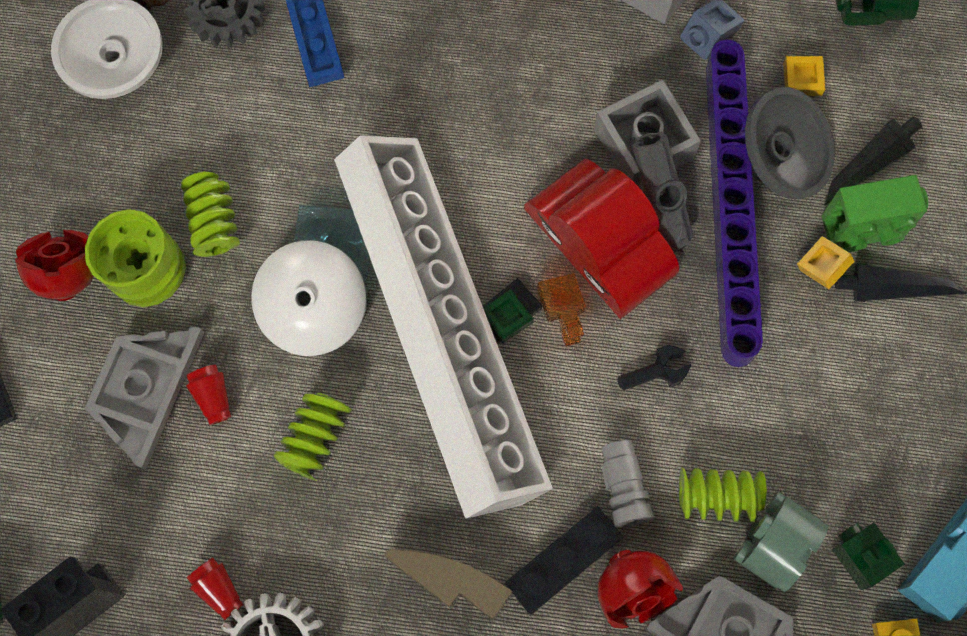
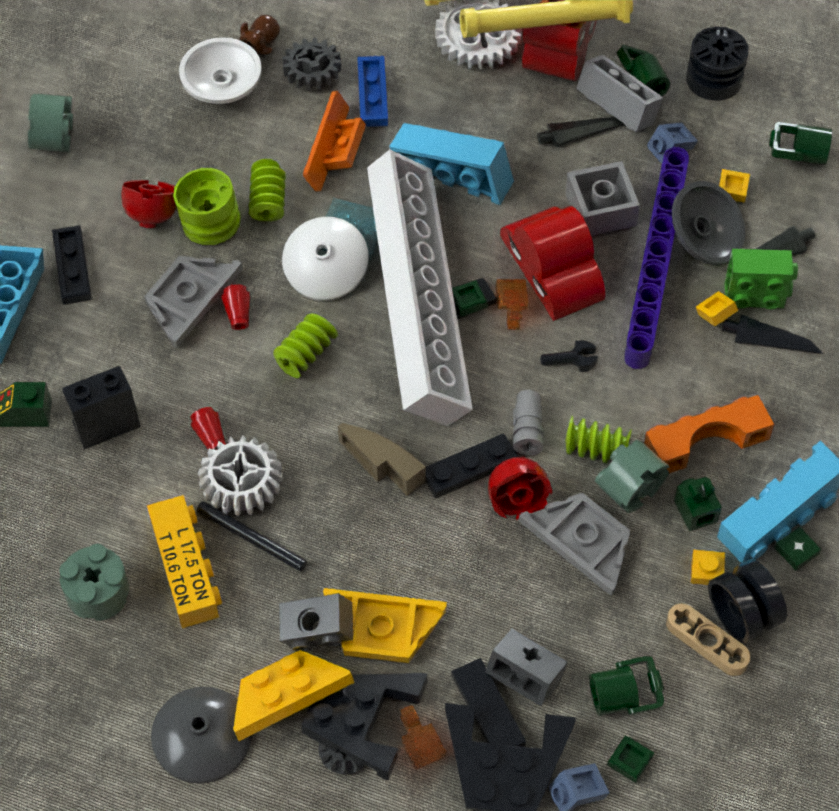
camera: 10 degrees right, 15 degrees down
(282, 120) = (334, 143): none -> orange bracket
(442, 114) = (458, 159): none -> medium azure wedge
(581, 36) = (571, 131): none -> pearl dark grey bar
(656, 173) = (601, 213): dark grey piece -> none
(896, 425) = (741, 422): none -> orange arch

